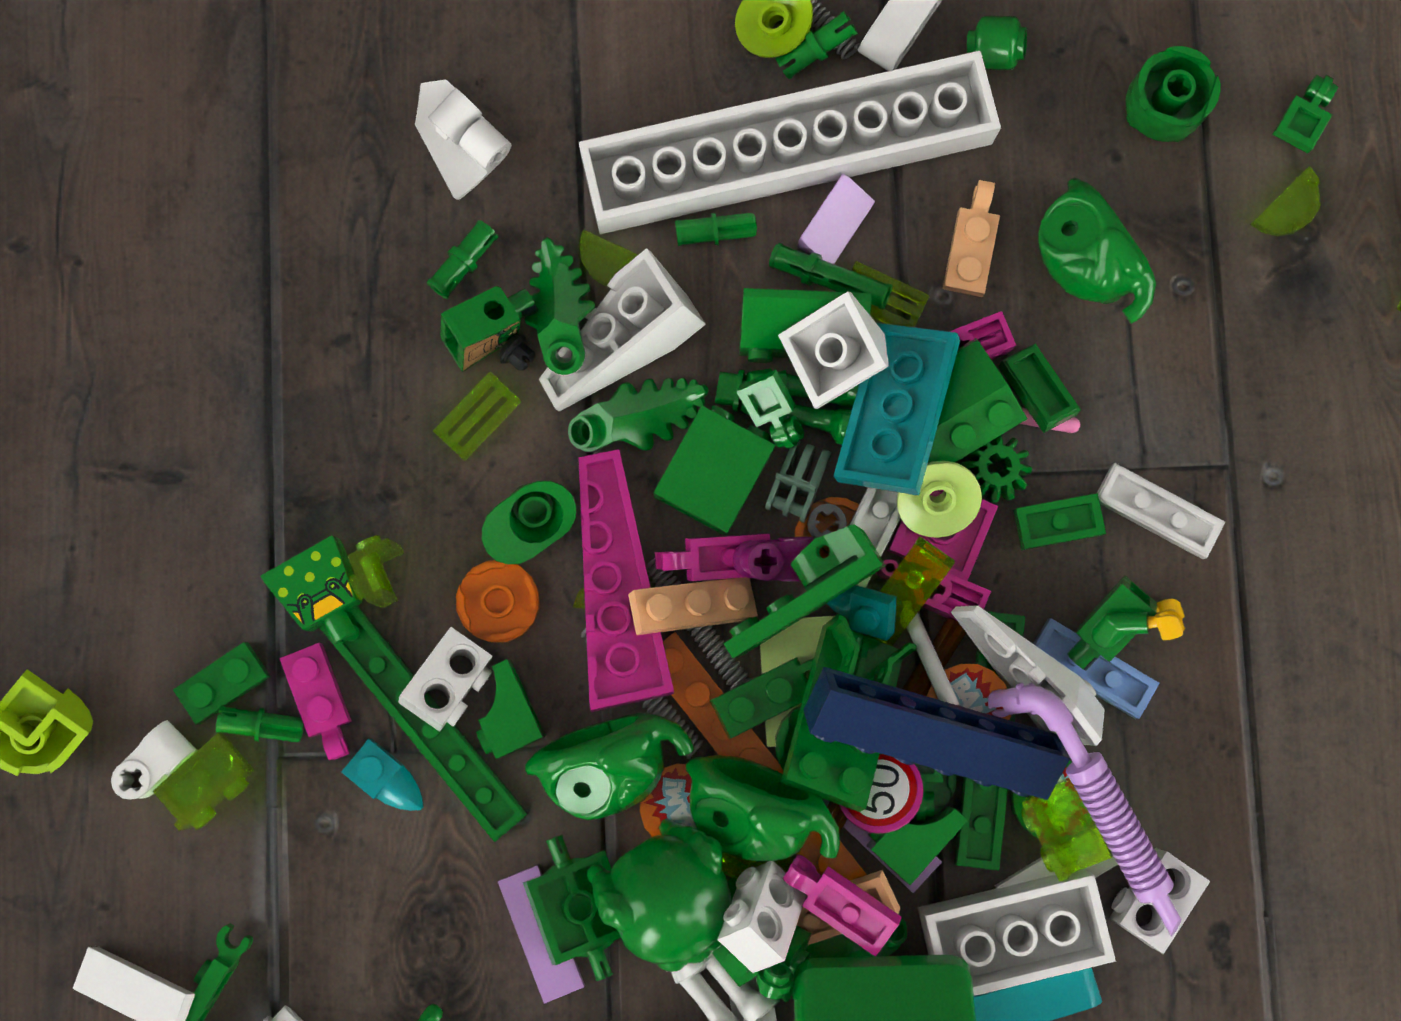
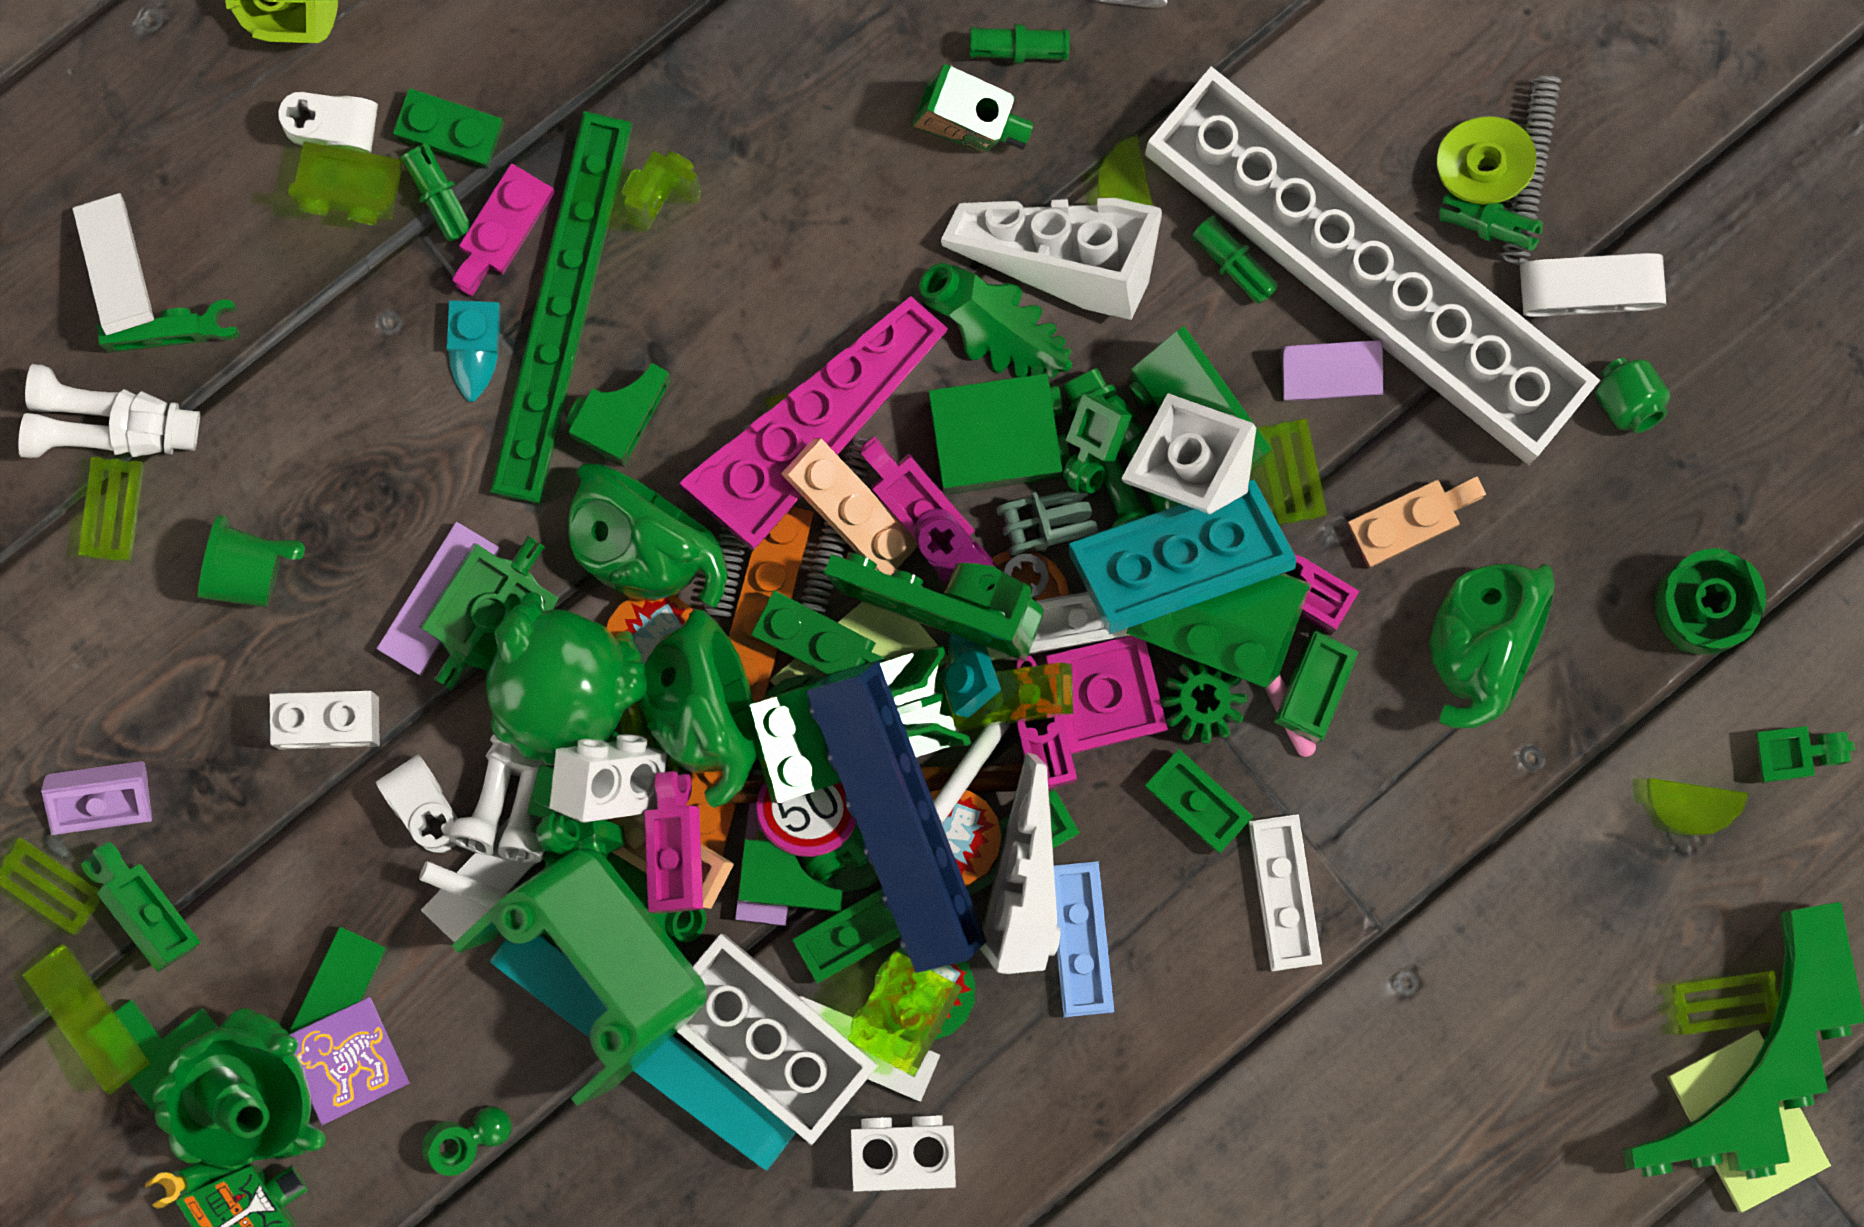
camera: 55 degrees right, 0 degrees up
(317, 588) = (602, 148): green torso -> none
(438, 674) = (606, 319): white brick -> none
(459, 411) = (879, 153): clear neon green tile -> none
(497, 601) = (717, 325): orange tile -> none
(516, 351) = (968, 161): black piece -> none
(528, 521) = (812, 295): green piece -> none
(558, 308) = (1040, 169): green plant -> none
(826, 274) = (1266, 384): green pin -> none
(944, 513) = (1115, 678): yellowish green dish -> none
(1101, 797) = (951, 1019): lavender piece -> none
(1119, 618) = (1143, 918): green torso -> none

